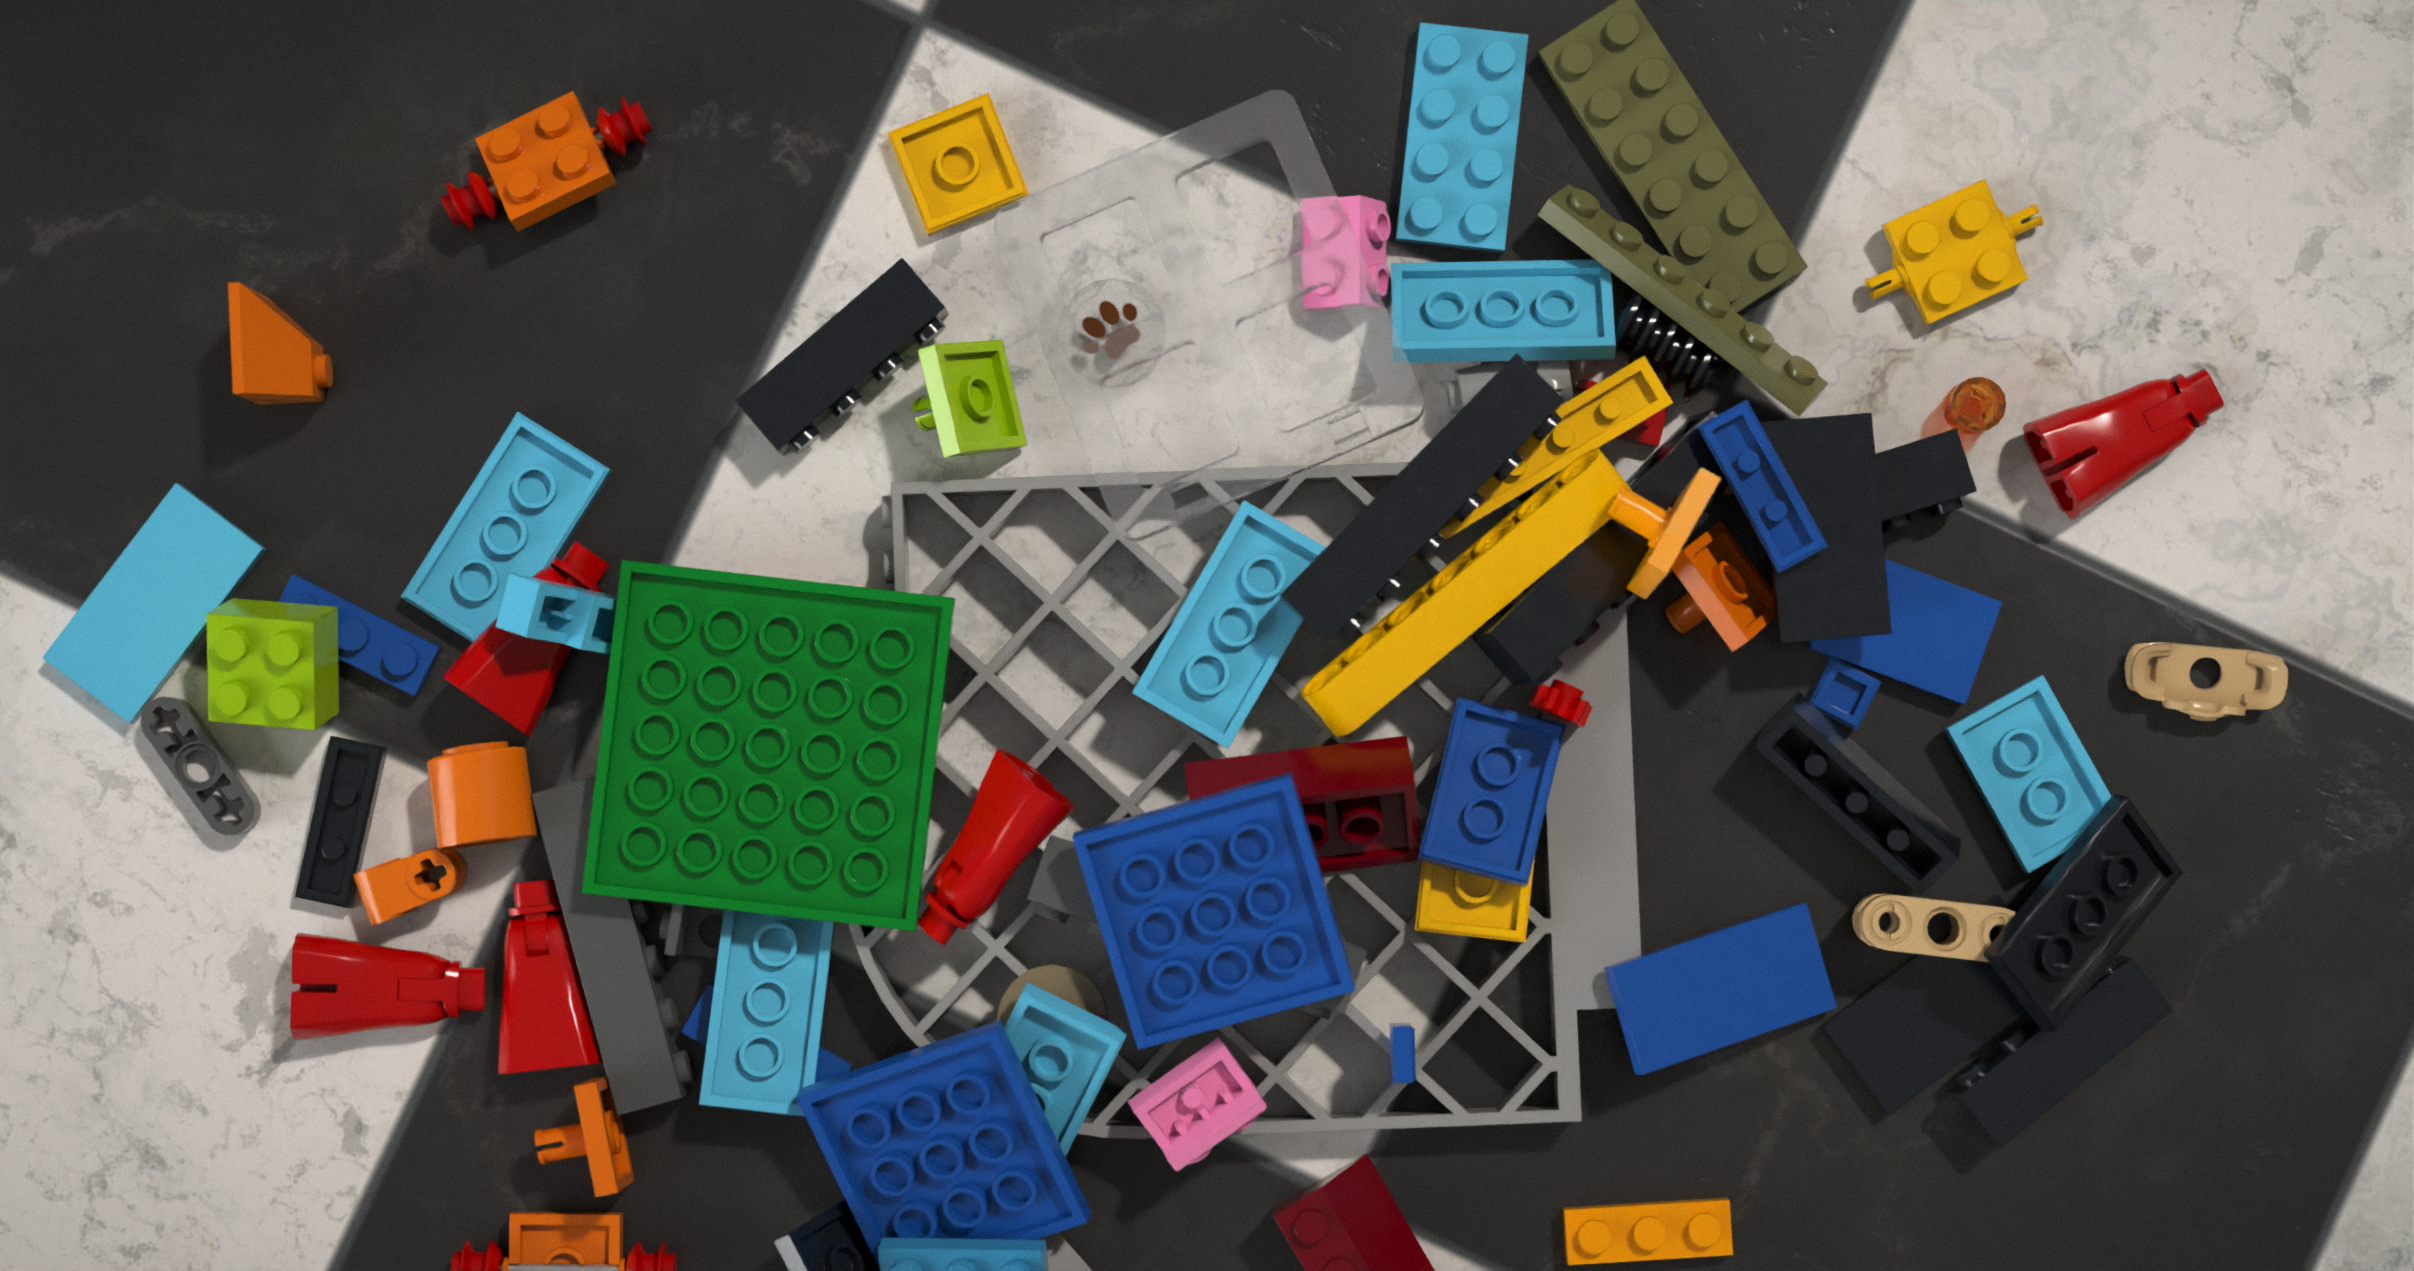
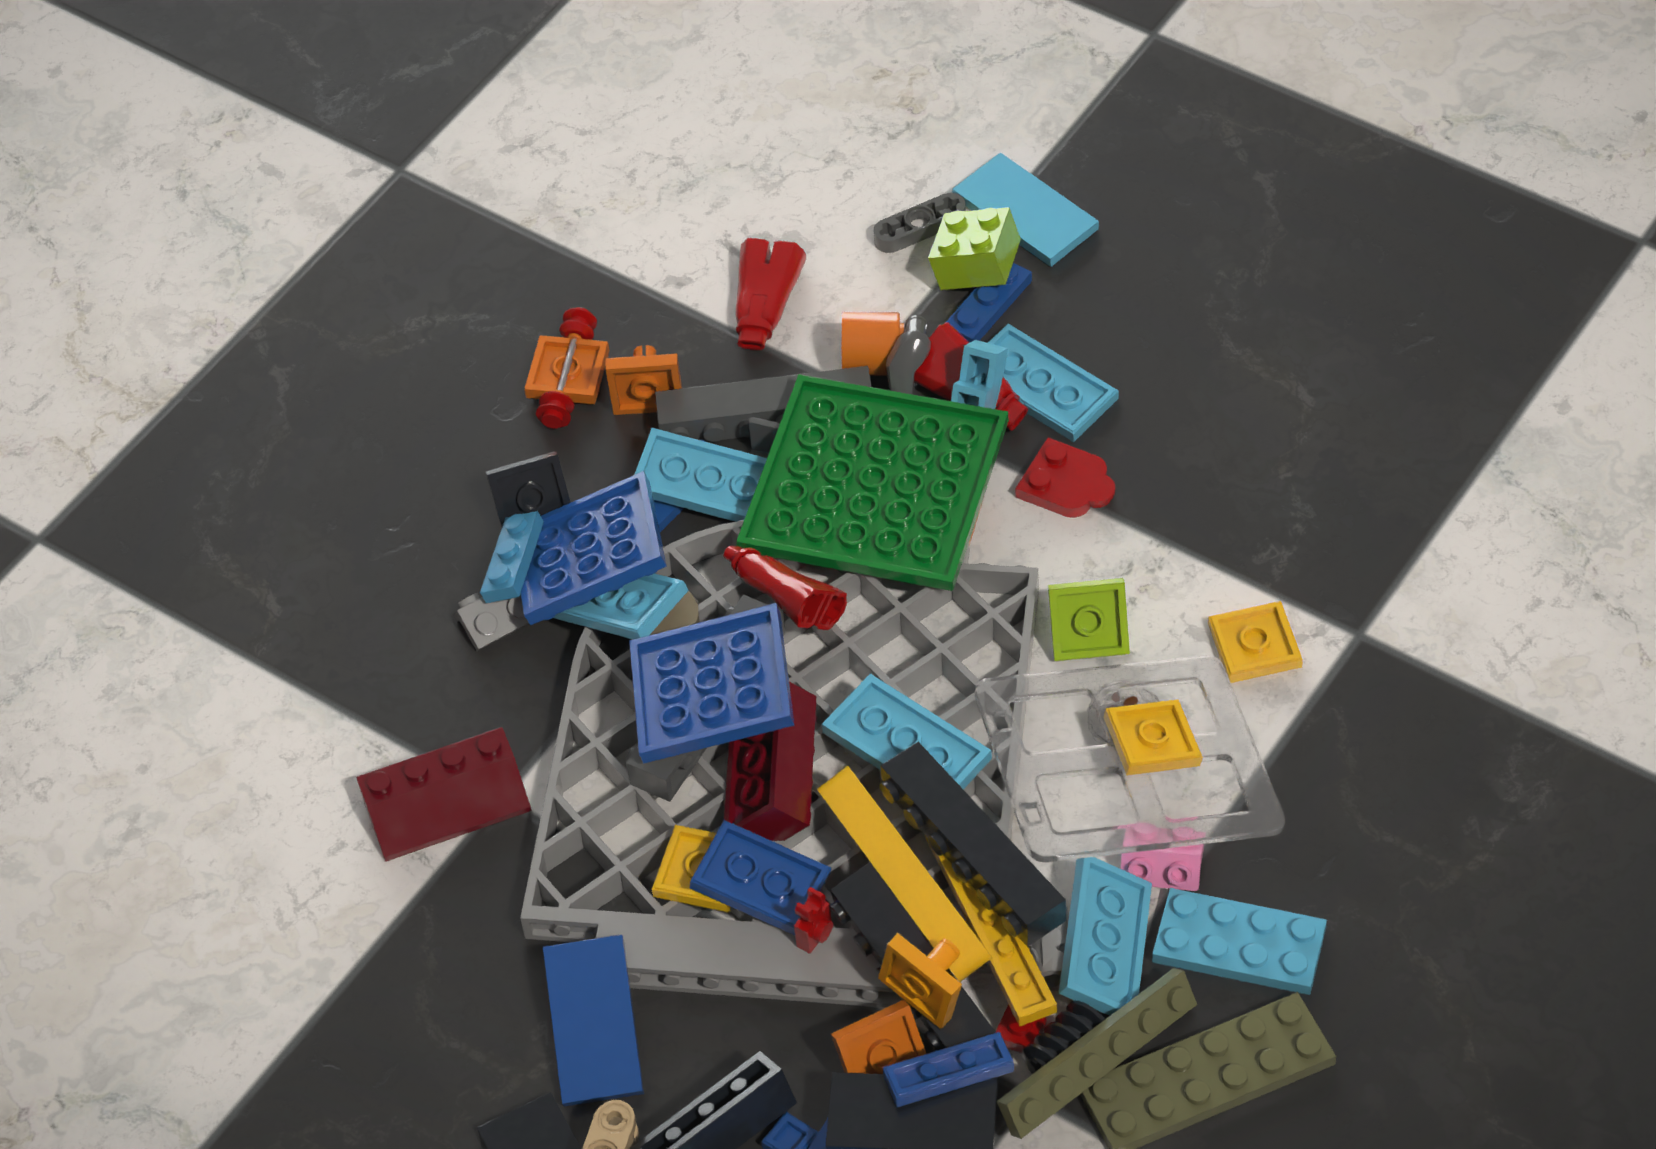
camera: 105 degrees right, 35 degrees down
(272, 354) = (1175, 262): orange slope -> none
(341, 821) = (872, 287): black tile -> none
(404, 883) = (825, 312): orange piece -> none
(523, 730) = (908, 355): none -> dark grey arm
(543, 995) = (726, 363): red piece -> none
(545, 162) = (1281, 415): orange plate -> none
(694, 468) = (1066, 480): none -> red plate
(842, 358) = (1124, 552): black brick -> none
(1177, 281) = (1152, 737): none -> yellow tile
(1198, 1104) = (587, 685): bright pink bracket -> none
(1402, 1053) = (592, 804): blue tile -> none
(1647, 1231) = (434, 969): light orange plate -> none

